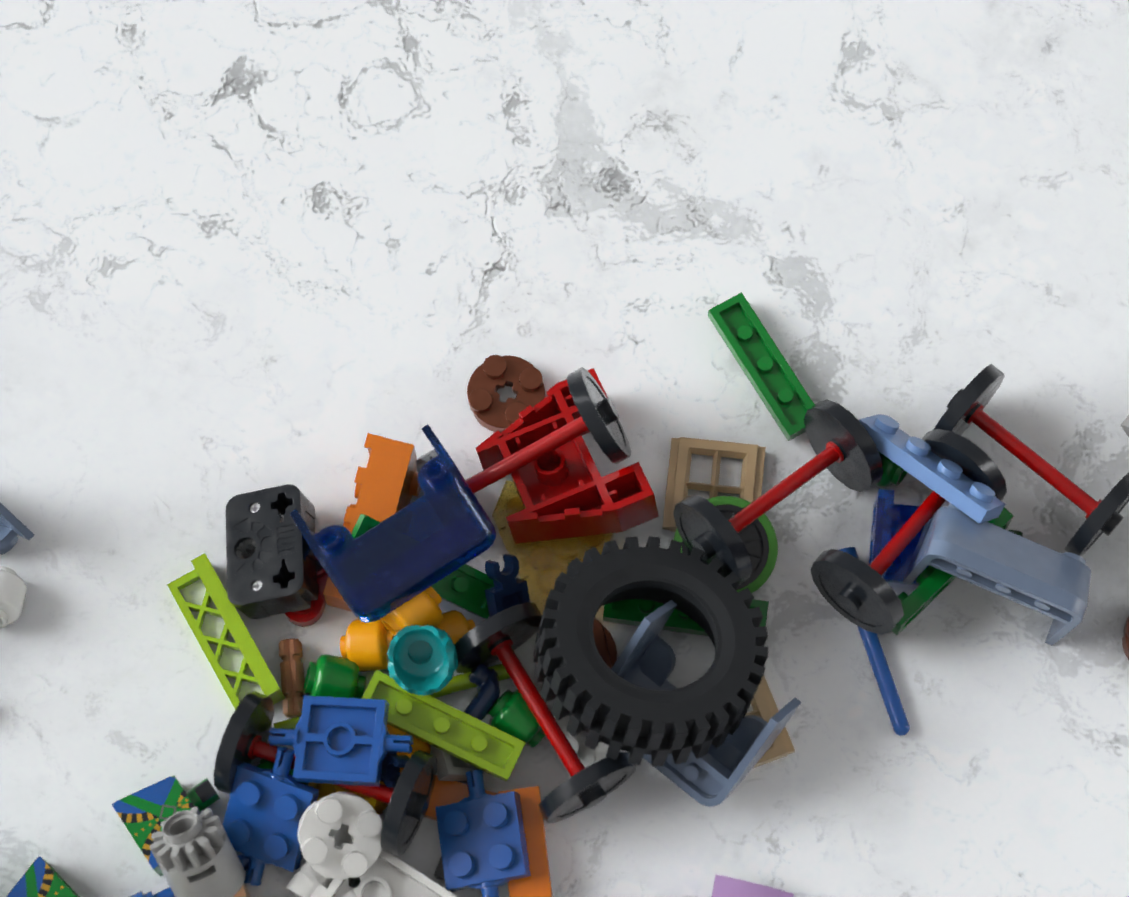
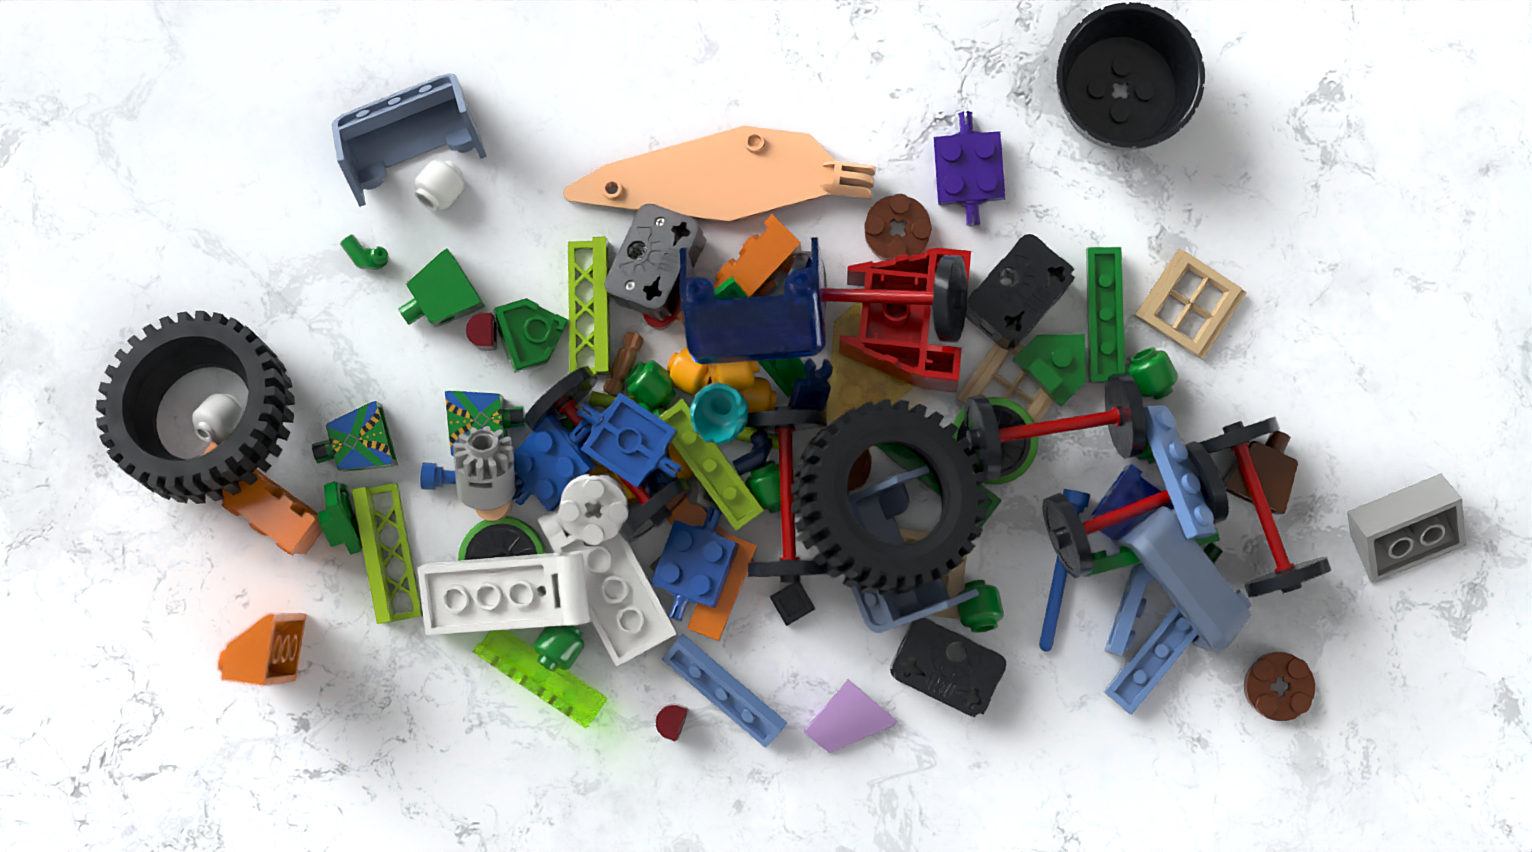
camera: 30 degrees right, 15 degrees up
(56, 707) = (440, 292): none -> green torso
(122, 723) = (482, 331): none -> dark red brick
(172, 699) = (528, 333): none -> green plate
(299, 432) = (726, 176): none -> light nougat wing
(546, 299) = (969, 168): none -> dark purple plate
(610, 830) = (792, 603): none -> black tile
(650, 98) = (1134, 48): none -> black piece
(673, 390) = (1026, 298): none -> black axle
(742, 438) = (1055, 364): none -> green plate
(813, 724) = (981, 611): none -> green head
(813, 818) = (942, 678): none -> black axle
(849, 391) = (1153, 373): none -> green head
(877, 314) = (1215, 320): none -> tan piece
(964, 640) = (1131, 606): none -> medium blue plate
(1020, 677) = (1151, 661): none -> medium blue plate
(1024, 420) = (1273, 469): none -> reddish brown torso

